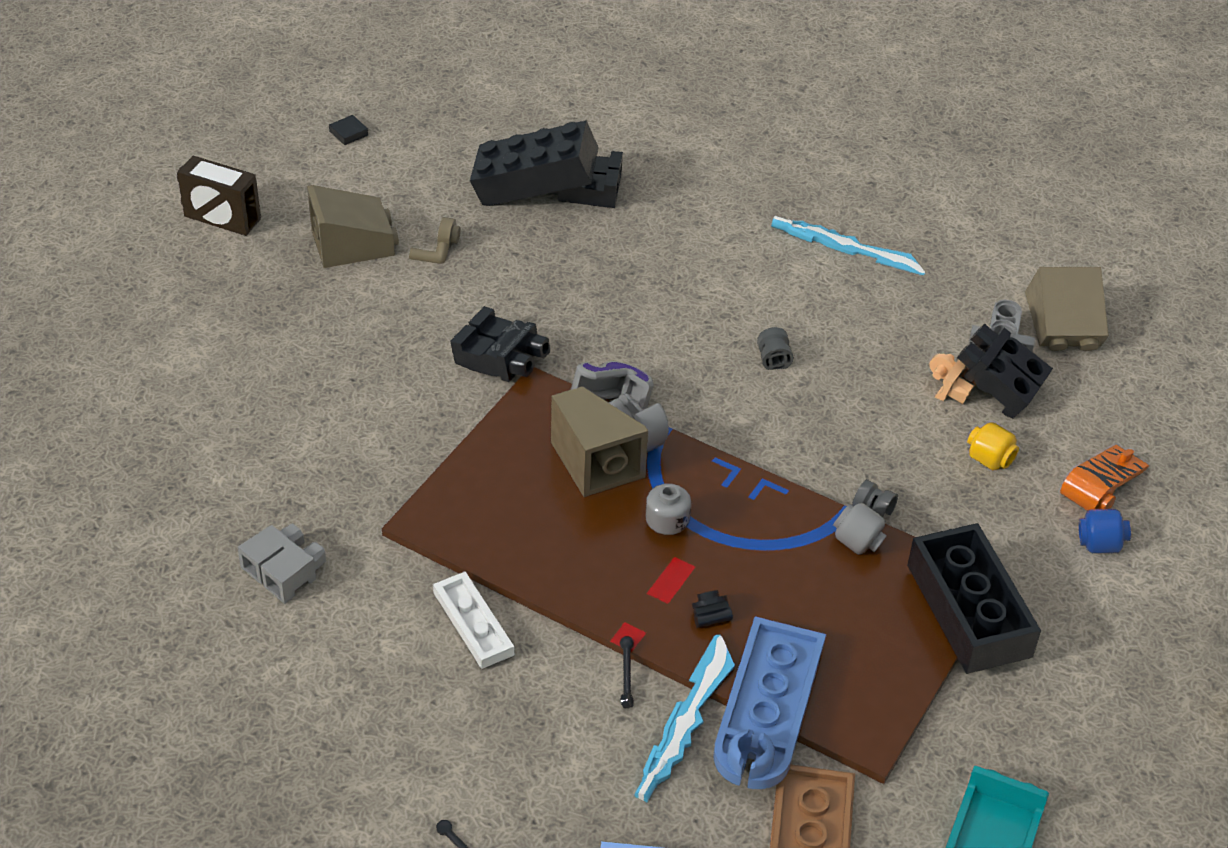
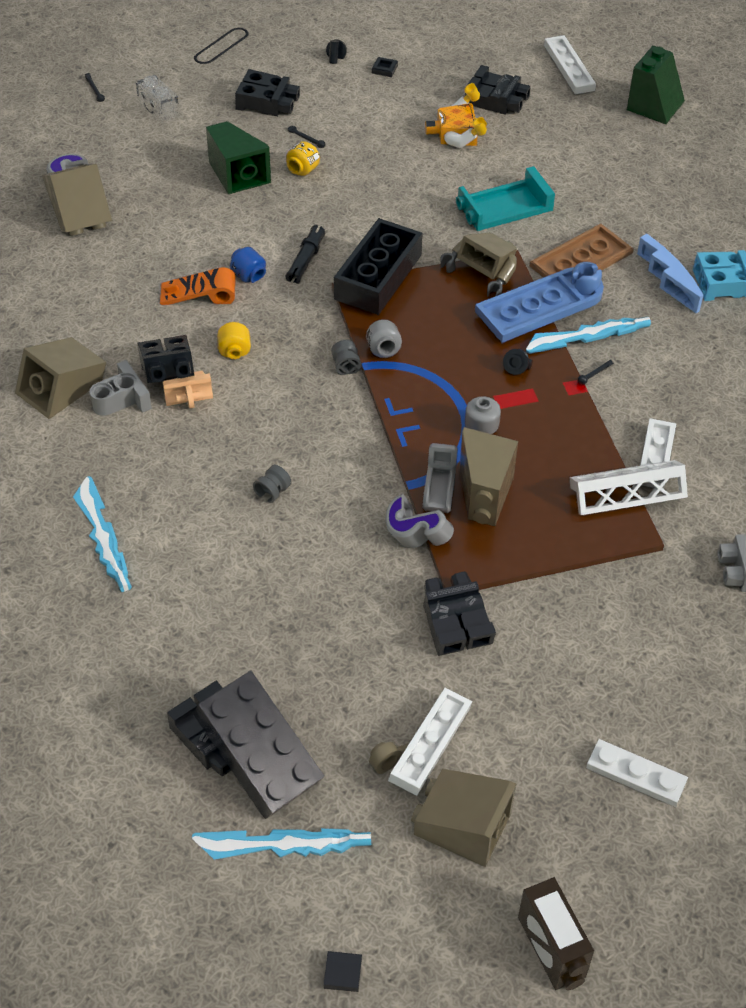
camera: 135 degrees left, 5 degrees up
(248, 342) = (637, 772): none -> white plate
(424, 256) = (430, 741): none -> white plate
(438, 177) = (281, 841): none -> medium azure sword
(464, 545) = (629, 476): none -> white fence
(885, 704) = (487, 255): none -> dark tan torso
(1086, 602) = (309, 247): none -> black pin

